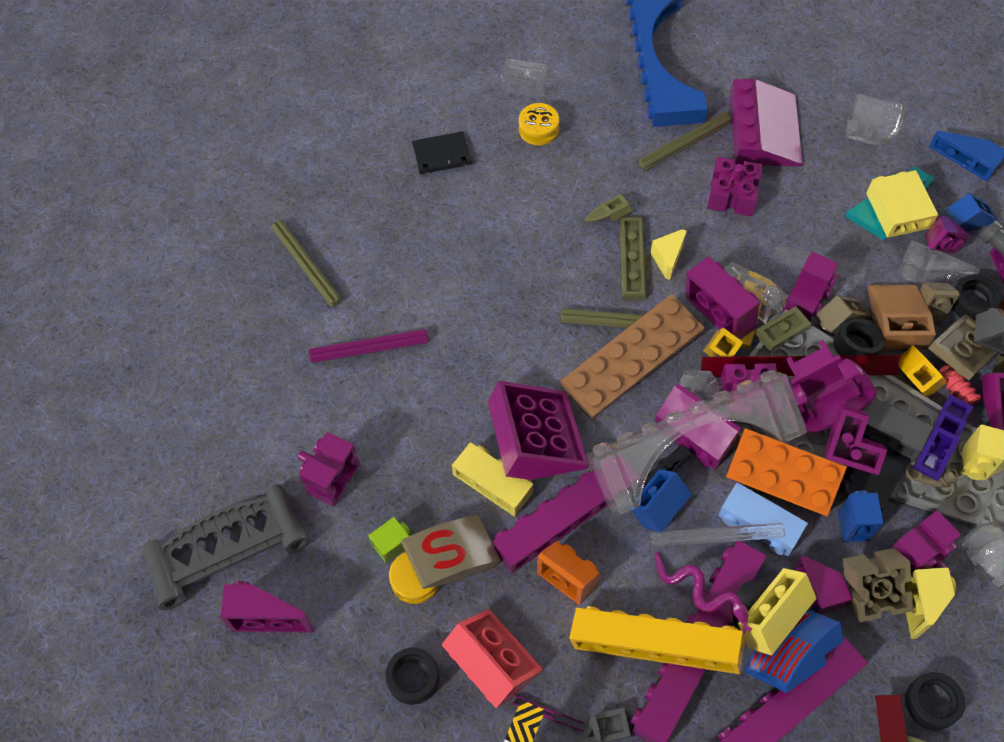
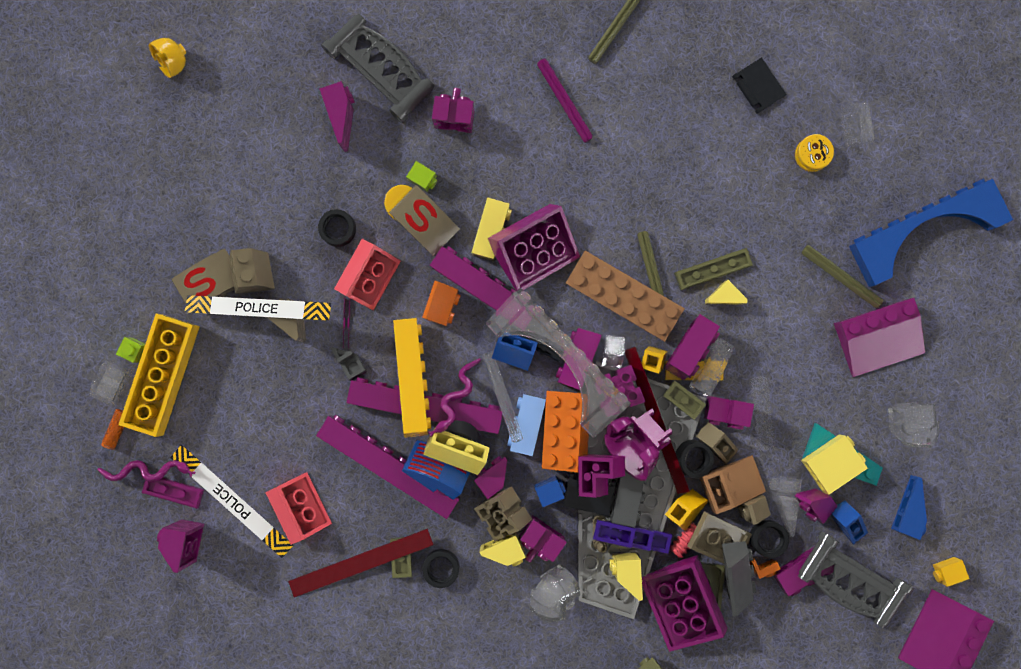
camera: 65 degrees right, 25 degrees up
(611, 209) = (749, 237): olive plate -> none
(734, 186) = (807, 328): magenta brick -> none

